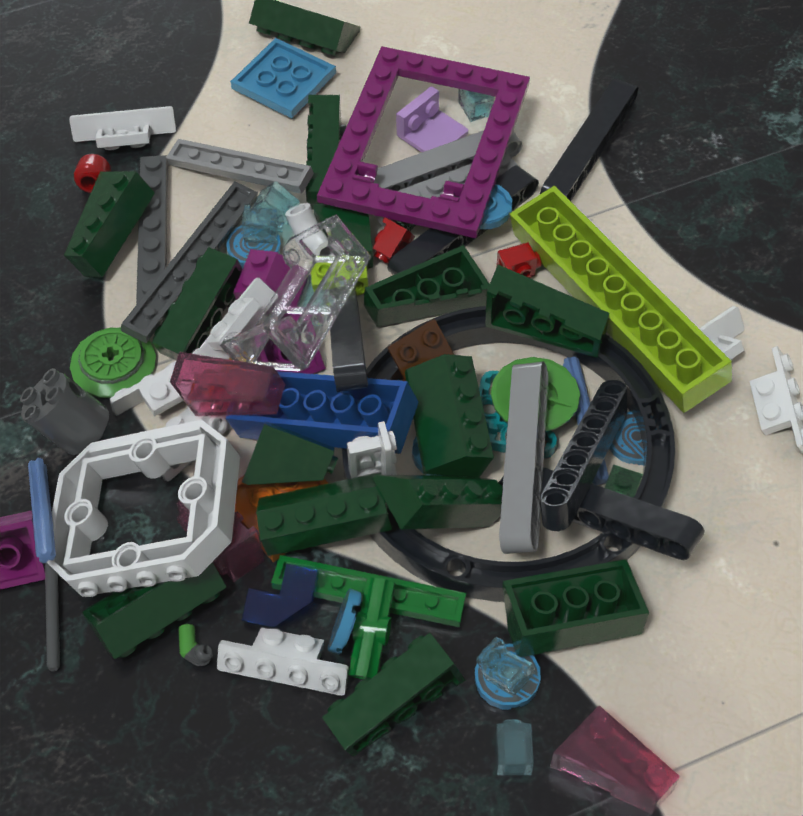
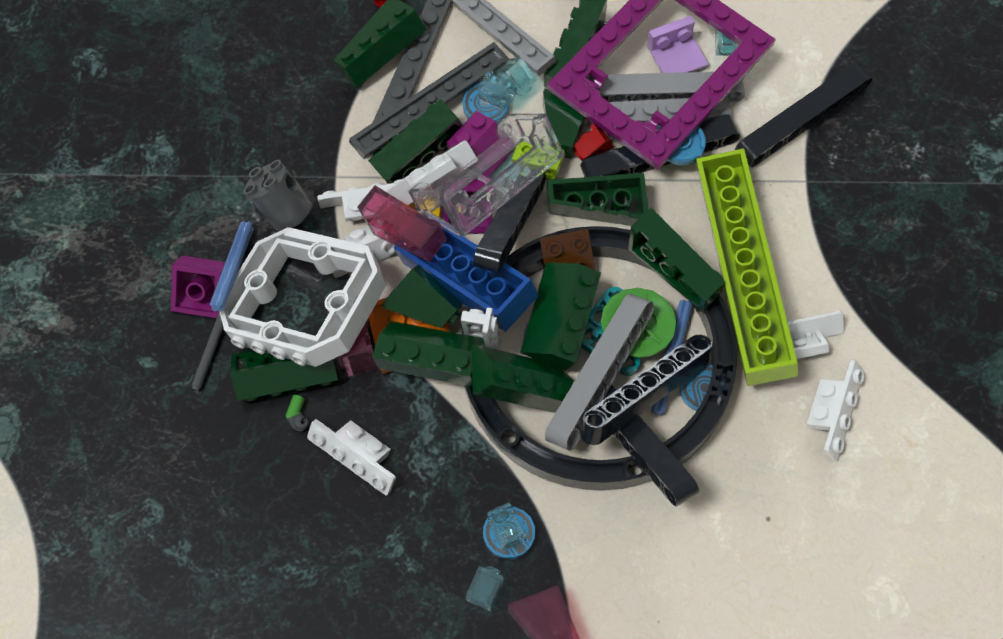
camera: 25 degrees right, 10 degrees up
(102, 377) = (338, 176): bright green piece -> none
(295, 594) = (384, 406): clear blue tile -> none
(302, 218) = (529, 103): white cylinder -> none
(344, 621) = (408, 442): dark azure tile -> none
(372, 628) = (425, 456): green piece -> none
(392, 694) = (418, 511): dark green wedge -> none
(409, 598) = (440, 426): green plate -> none
(520, 259) = (685, 202): red brick -> none
(573, 607) = (579, 504): dark green slope -> none
(623, 481) = (671, 421): clear green plate -> none

